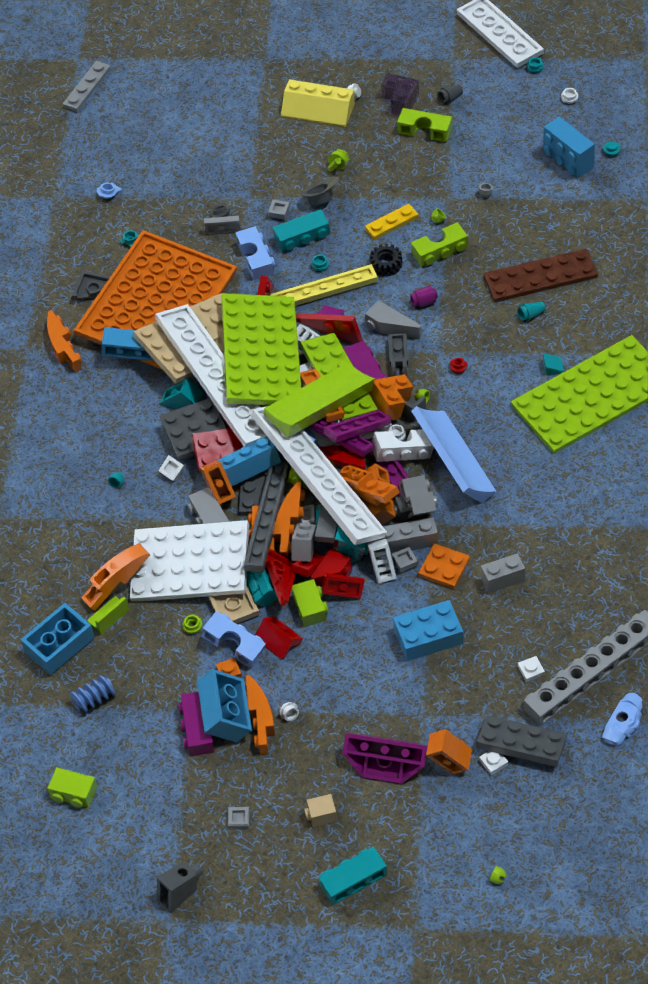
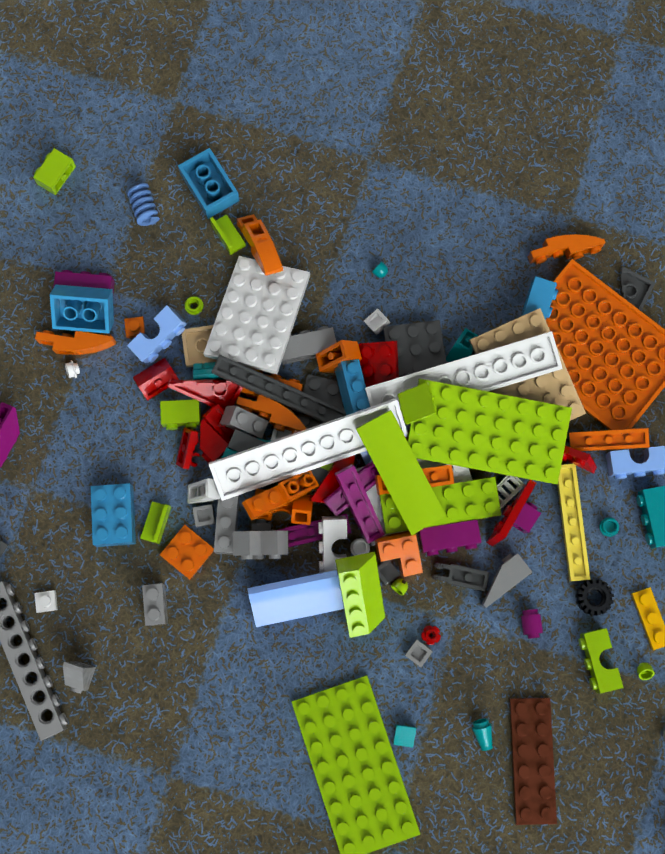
camera: 95 degrees right, 25 degrees up
(239, 268) = (610, 439): none -> orange plate
(251, 394) = (417, 403): none -> lime piece
(422, 593) = (155, 522): none -> lime panel
(441, 411) = (360, 593): none -> lime slope
(477, 369) = (418, 653): none -> light grey plate
(590, 609) = (78, 675): none -> light grey slope

